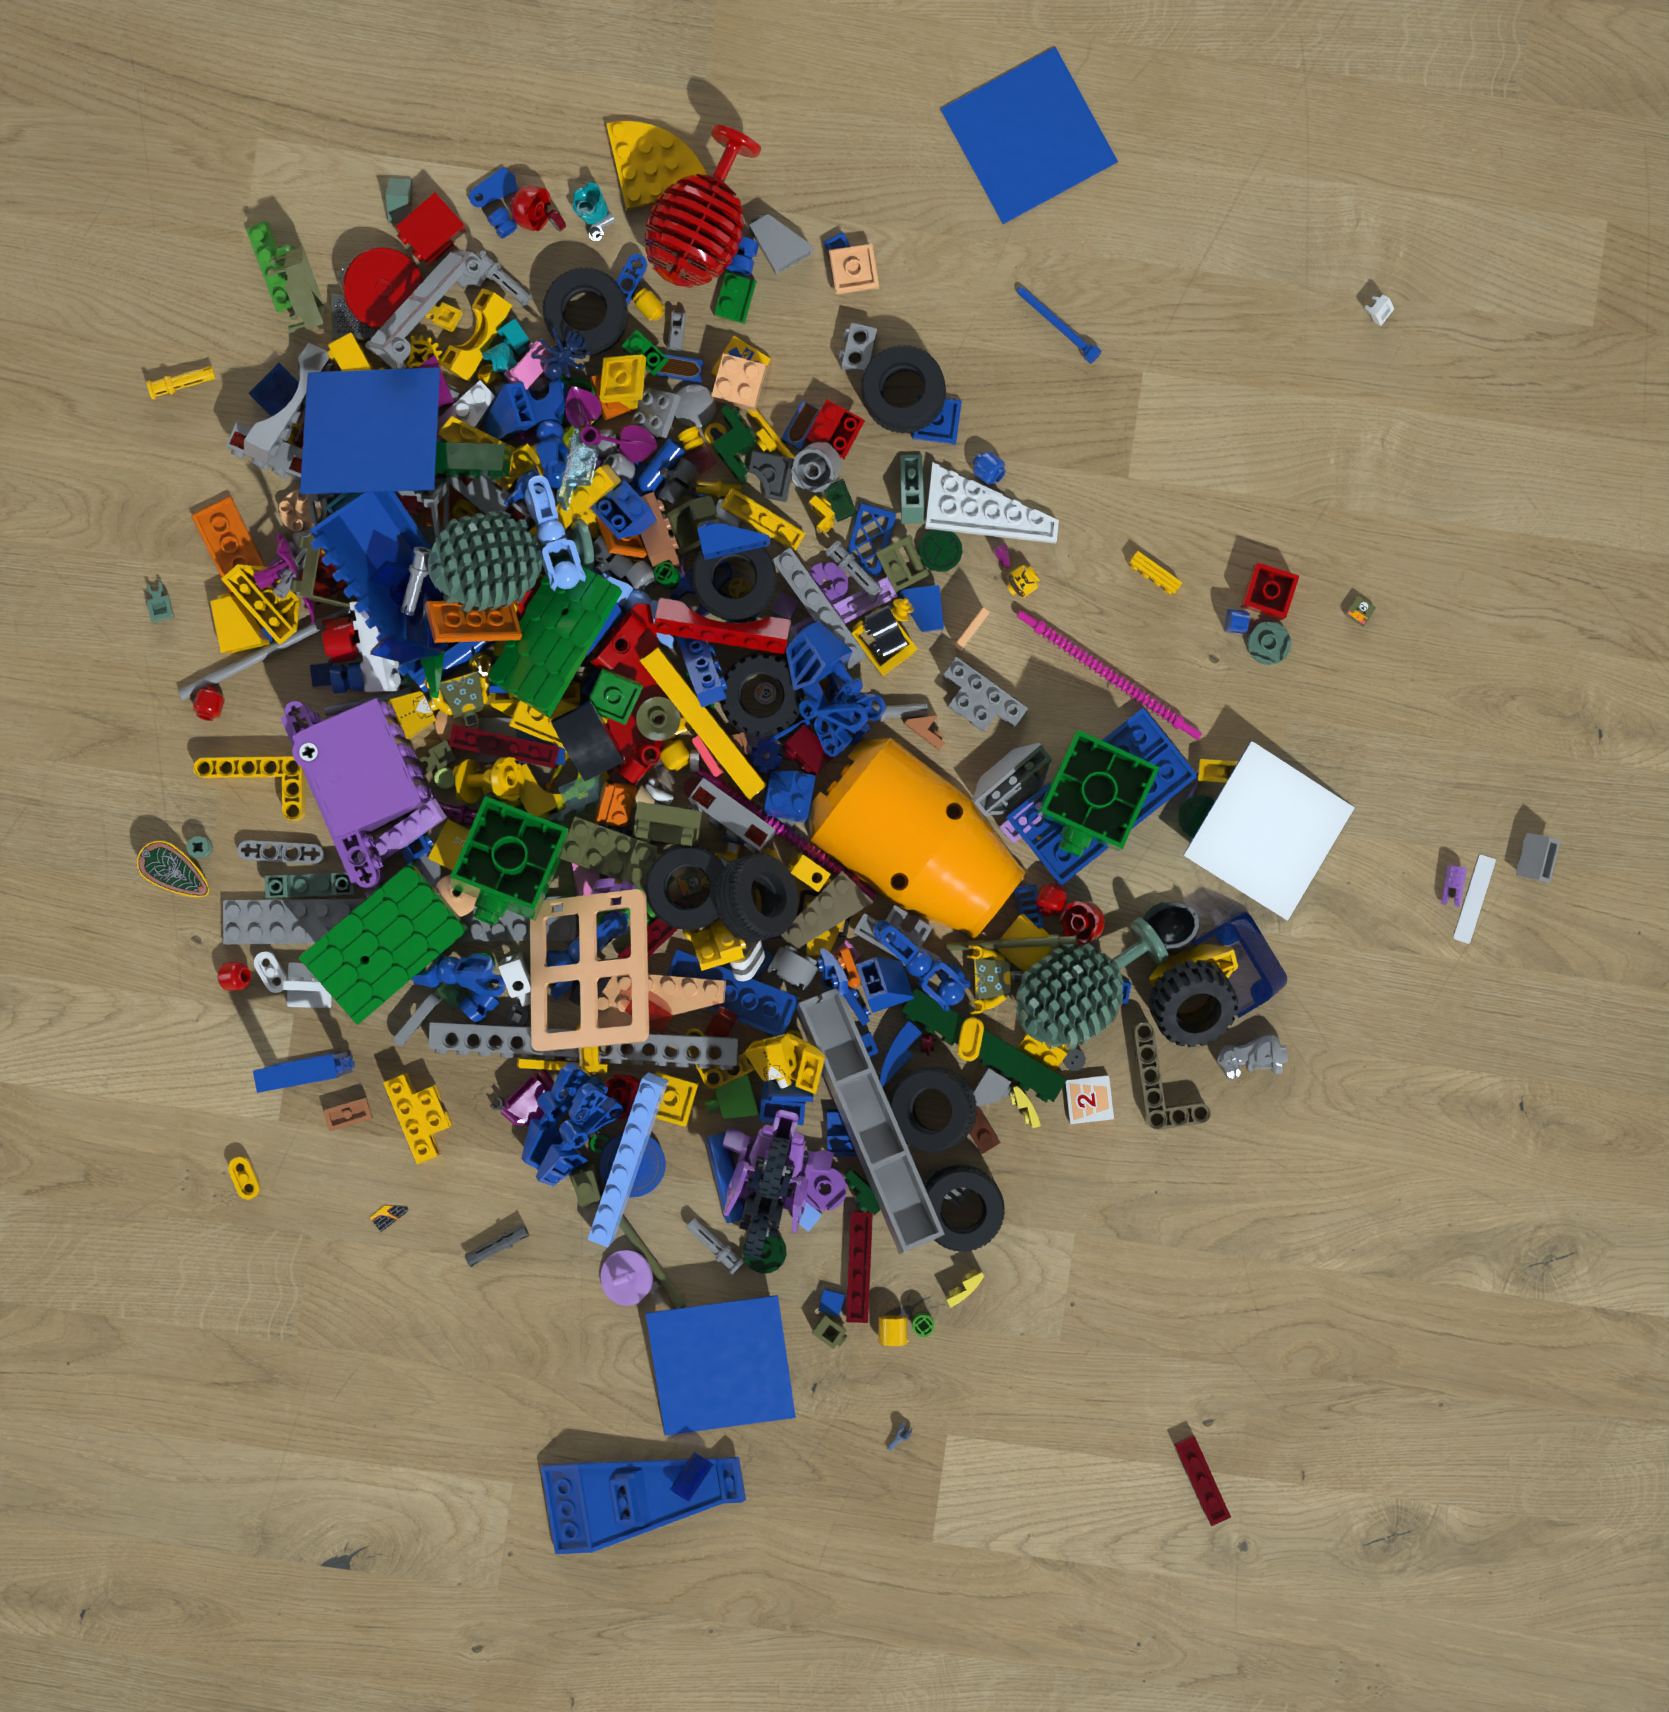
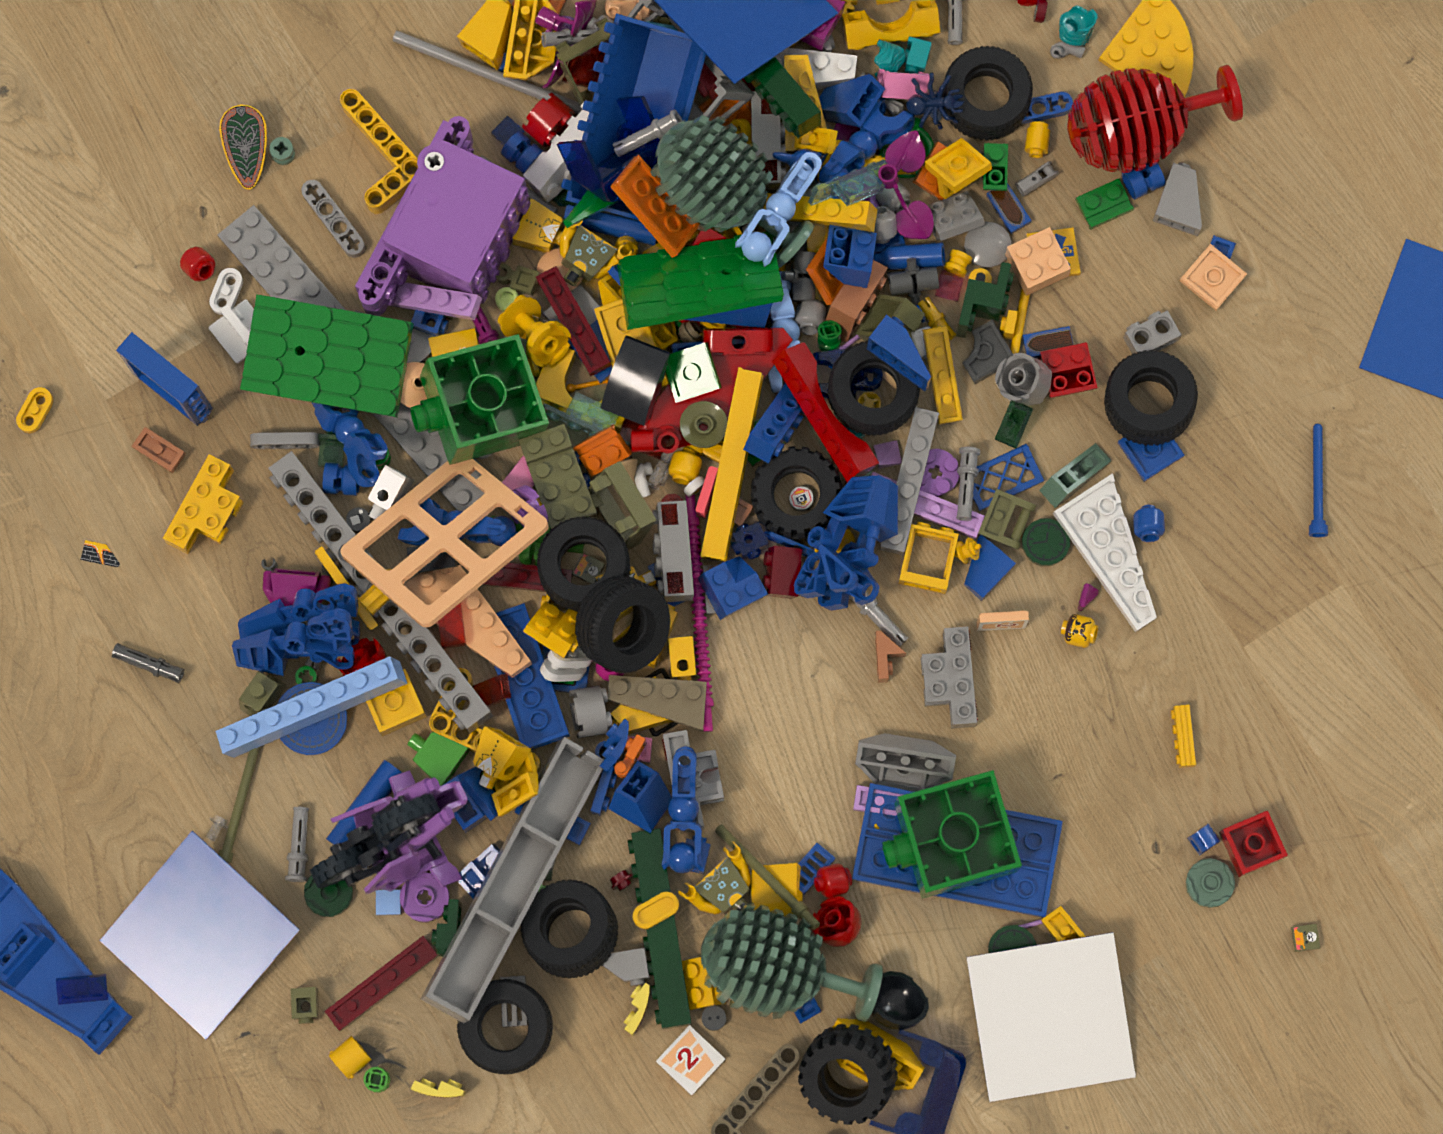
camera: 55 degrees right, 10 degrees down
(208, 703) = (406, 62): red head -> none
(308, 885) = (323, 261): sand green slope -> none
(489, 376) = (866, 60): yellow tile -> none
(626, 1277) = (209, 793): lavender shield -> none
(823, 510) = (986, 427): yellow bracket -> none
(831, 1302) = (331, 985): blue tile -> none
(884, 631) = (937, 549): black brick -> none
(894, 821) = (785, 688): light orange cylinder -> none
(898, 1052) = (592, 861): blue slope -> none
(983, 1133) = (585, 991): copper plate -> none
(1177, 721) = (1076, 861): dark pink hose -> none

